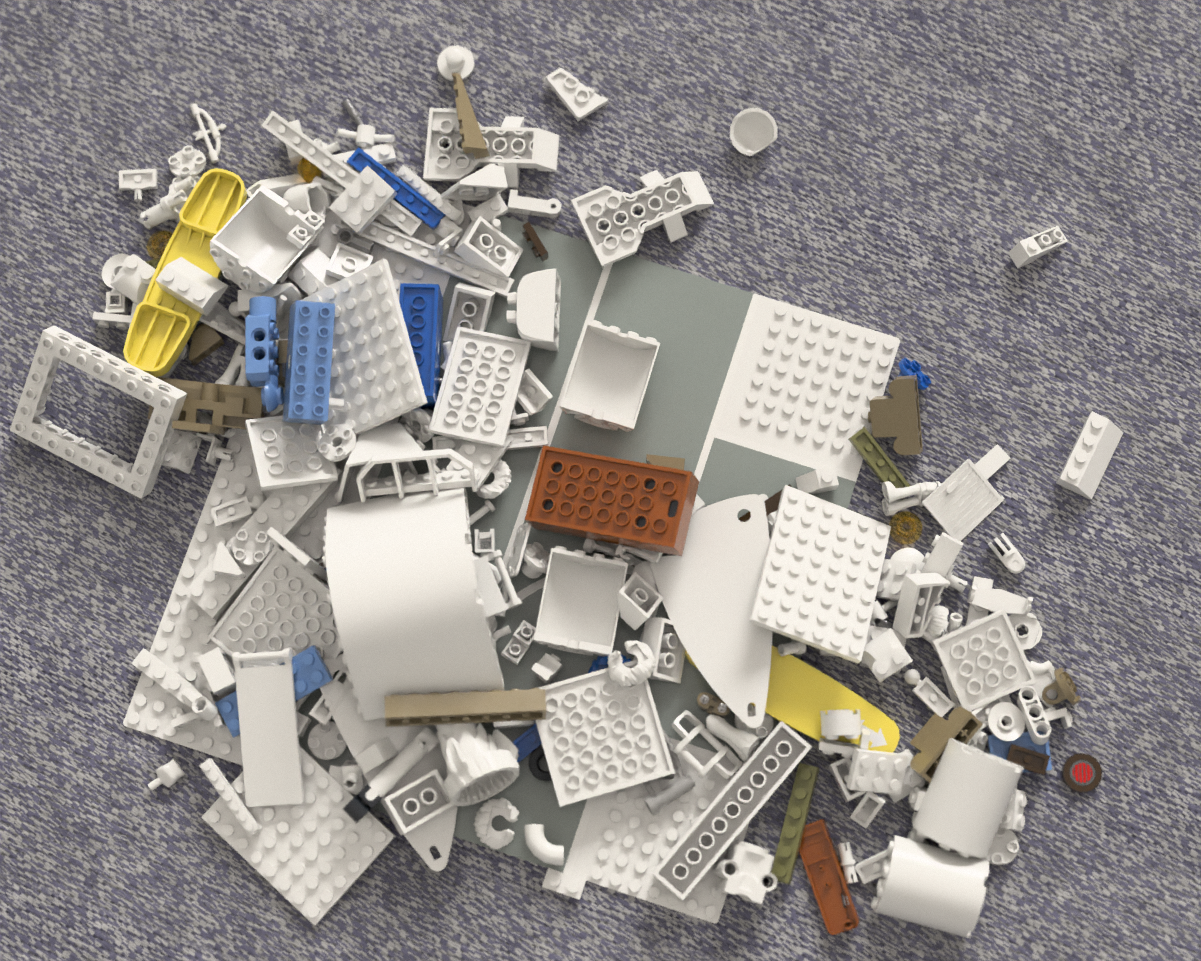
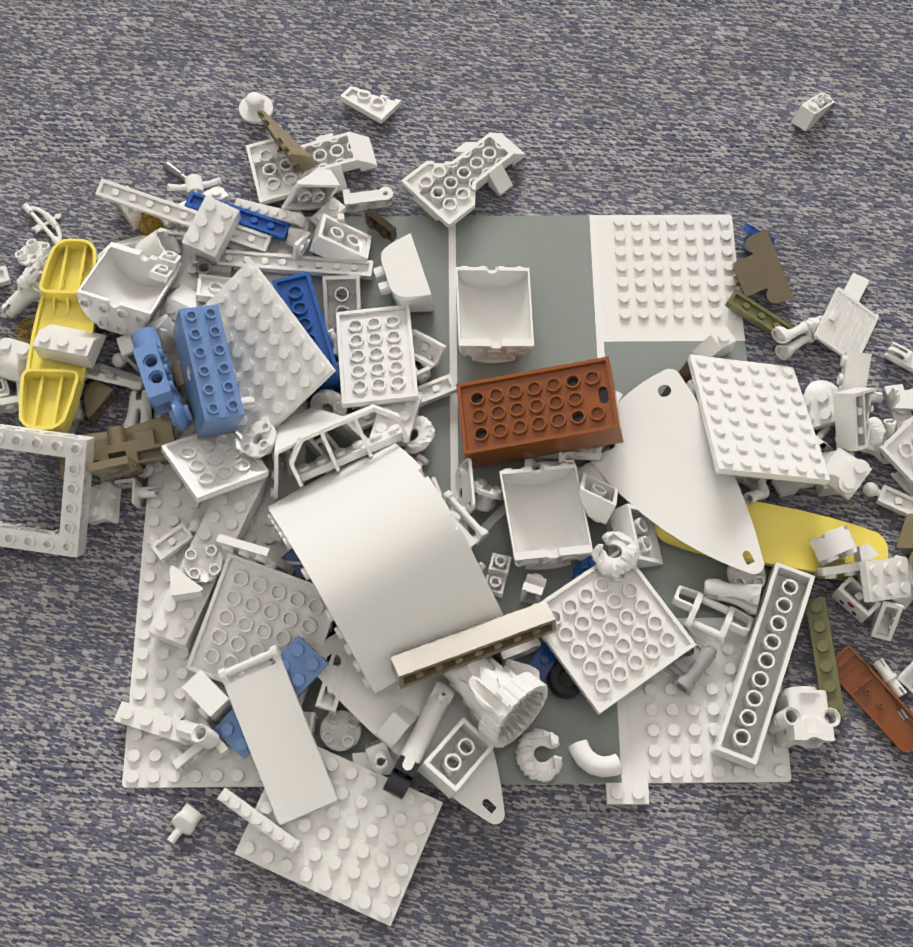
camera: 25 degrees left, 10 degrees down
(712, 704) = (701, 571): dark tan piece -> none
(753, 131) = (538, 86): white cylinder -> none
(904, 536) = (802, 371): clear yellow piece -> none

